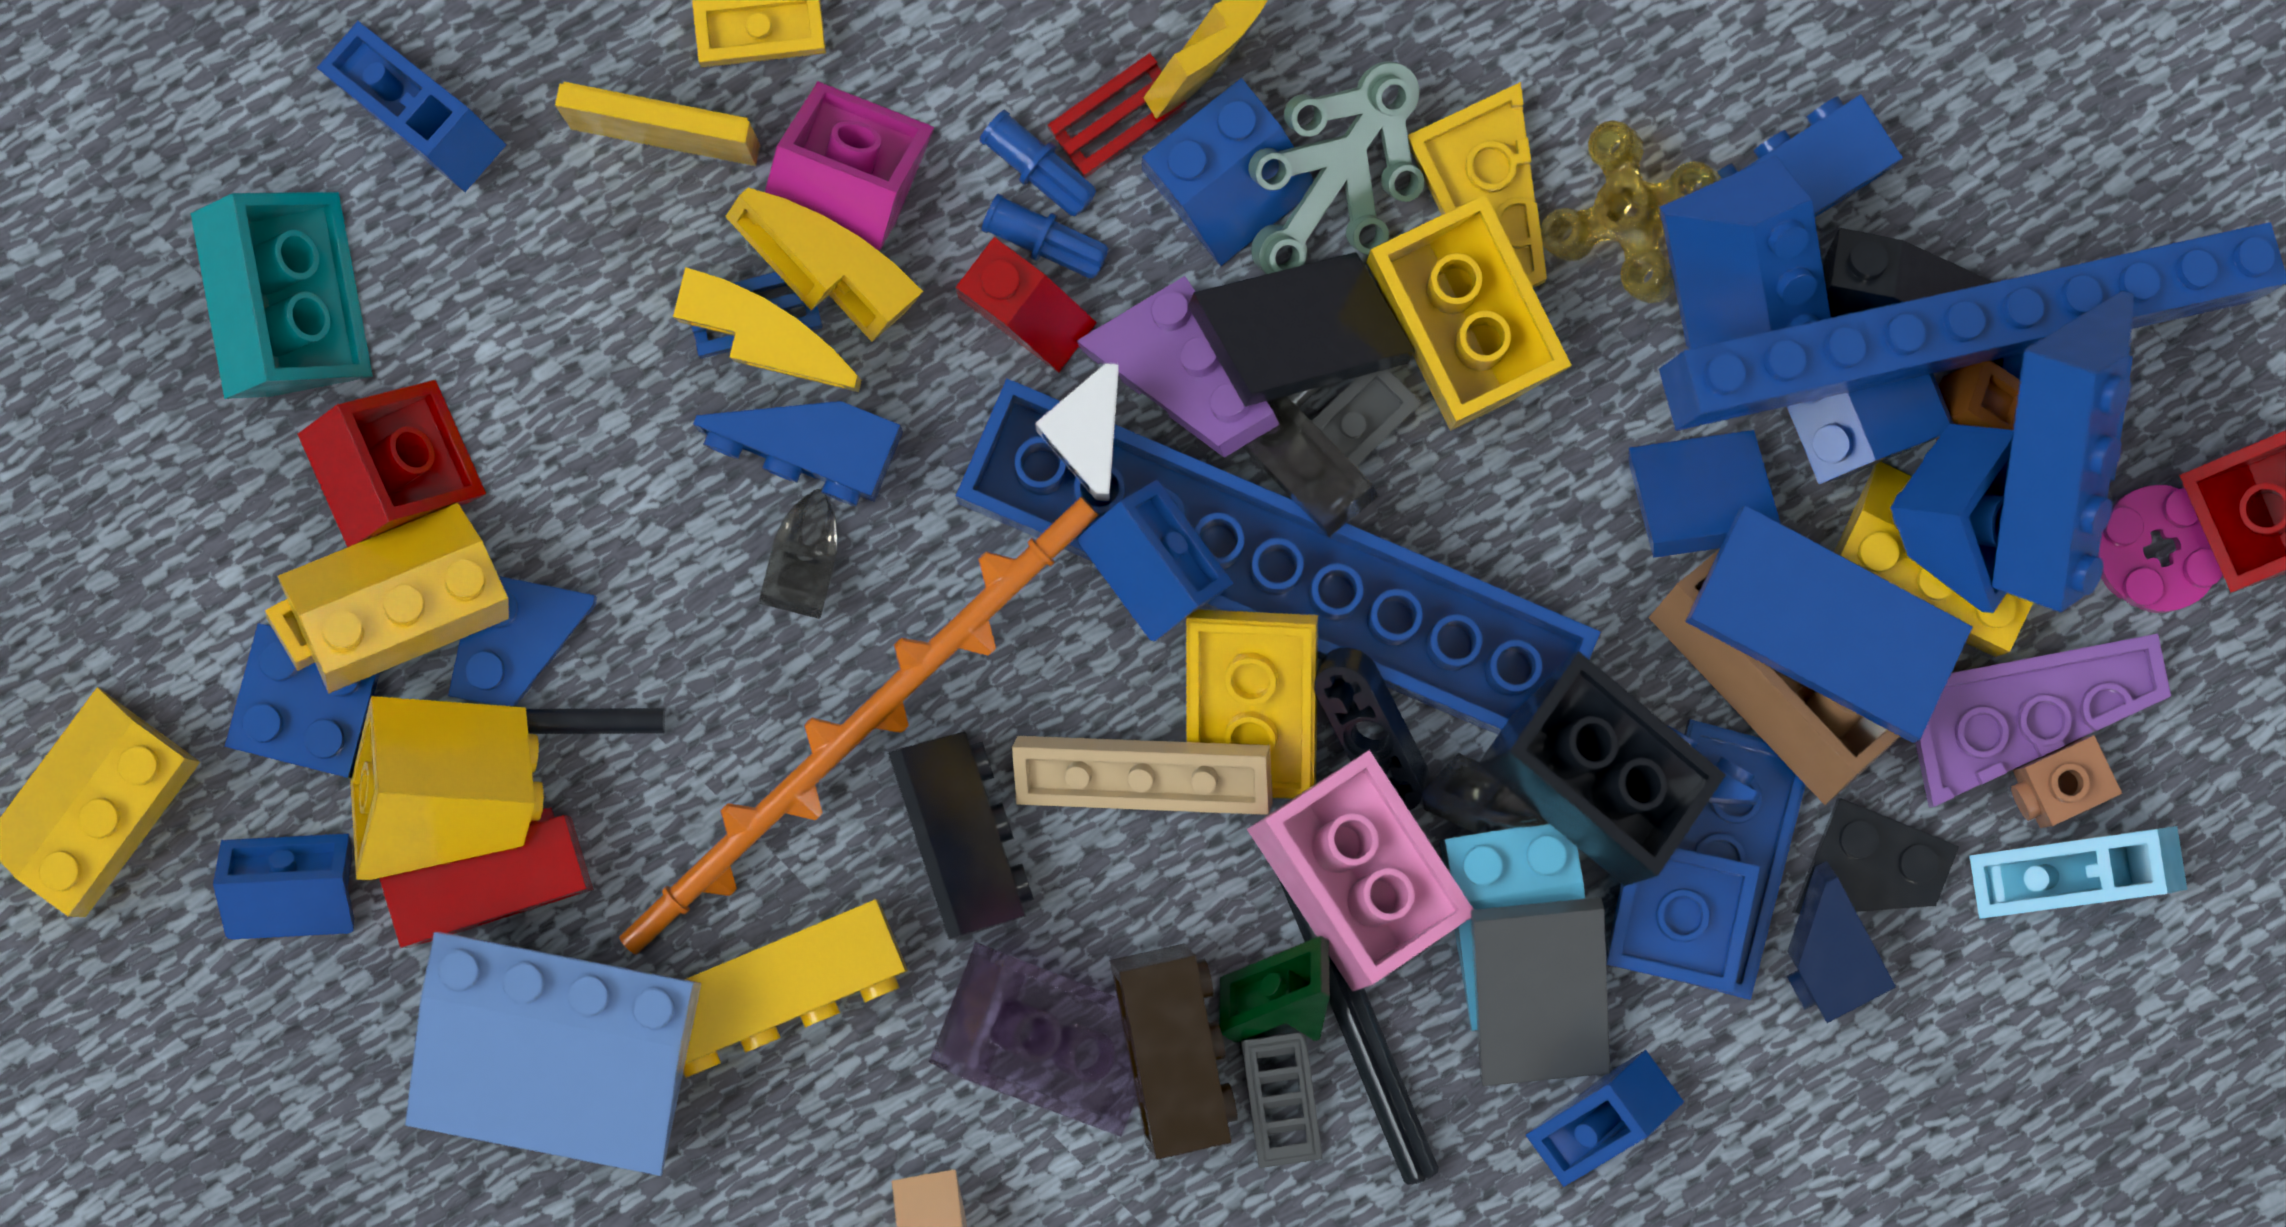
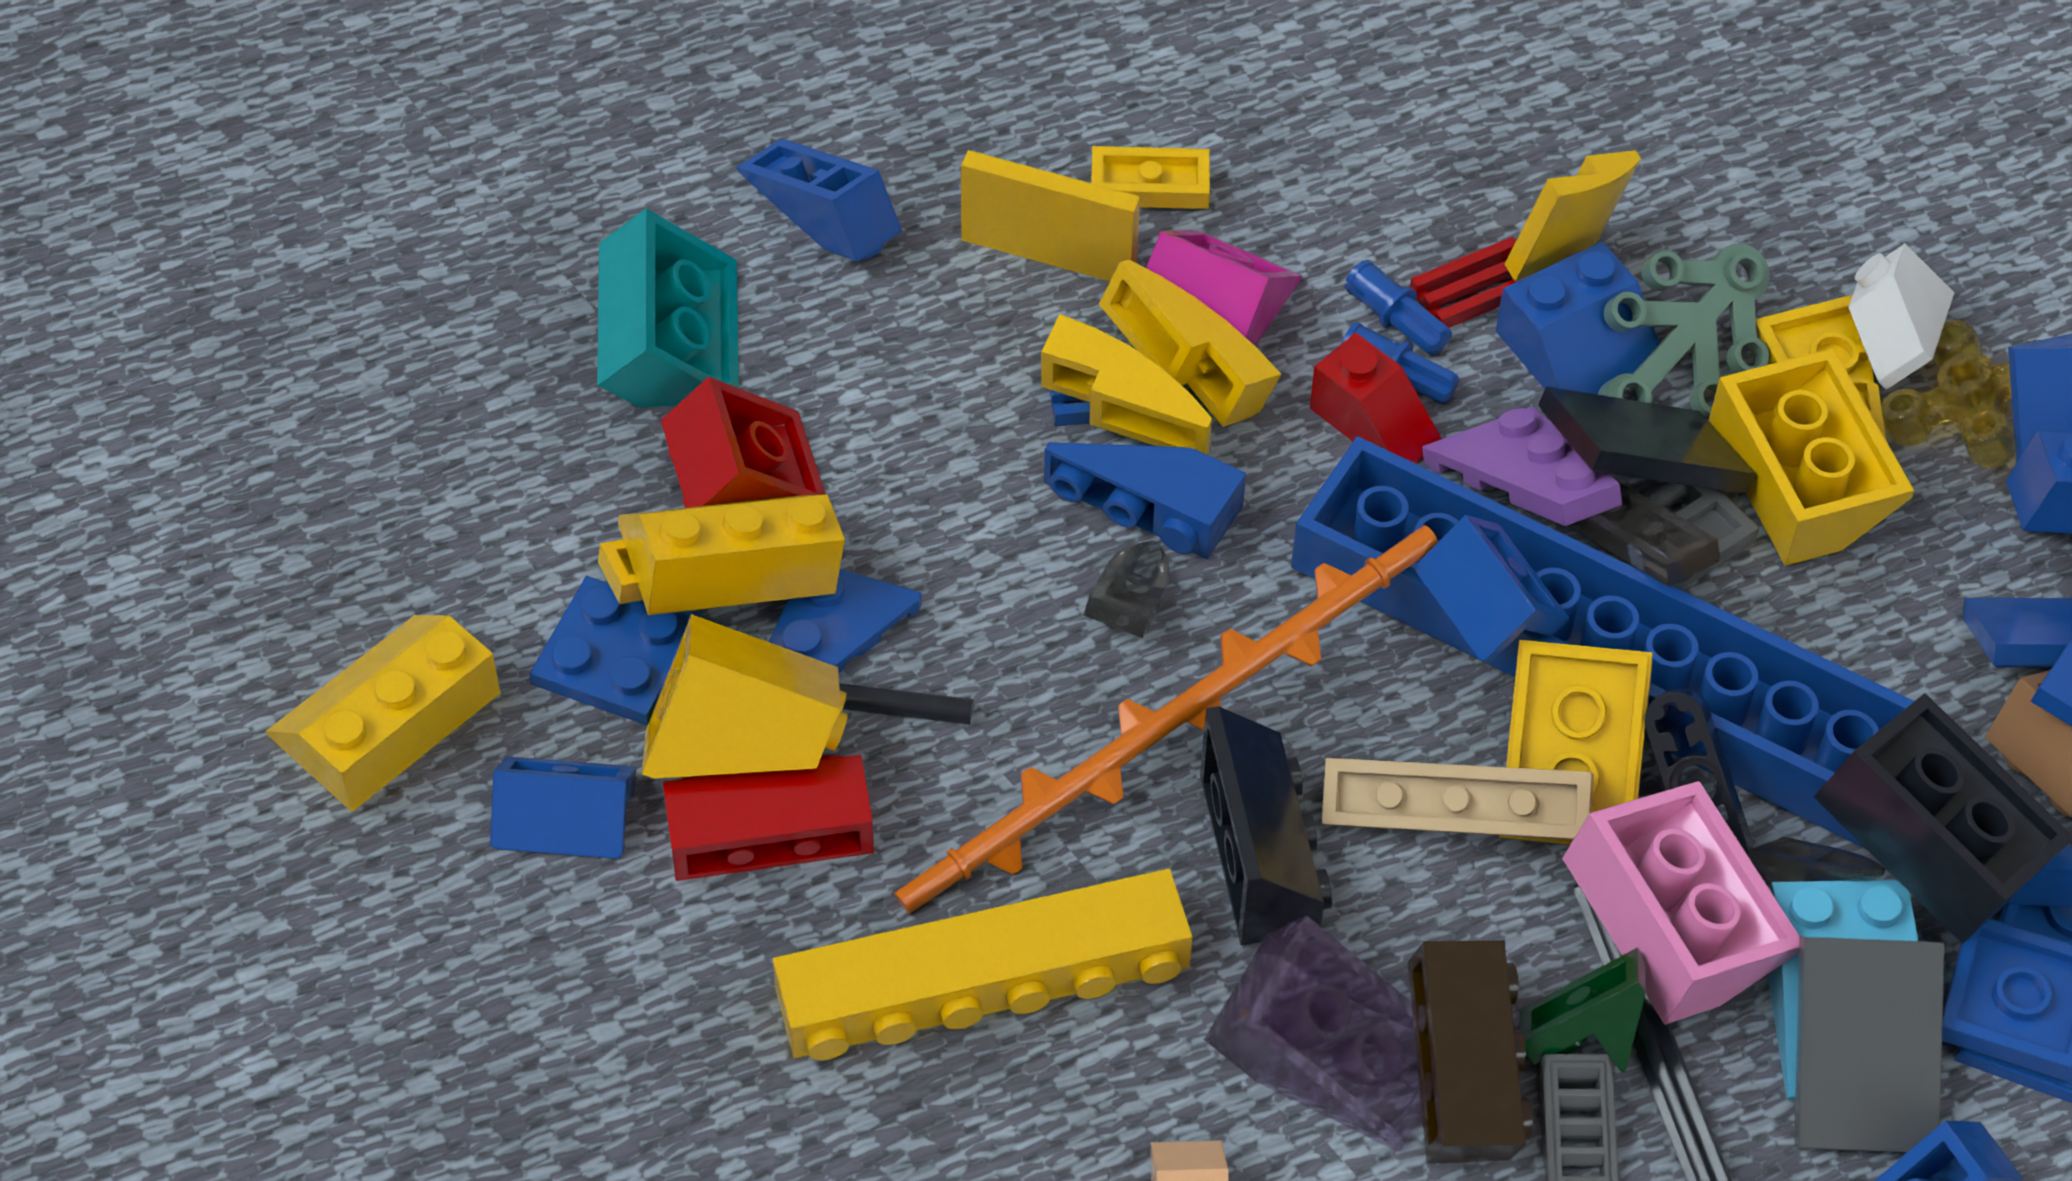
camera: 10 degrees right, 30 degrees down
(550, 1052) = (813, 946): medium blue slope -> none
(1083, 430) = (1427, 467): white slope -> none
(1556, 120) = (1899, 313): none -> white slope

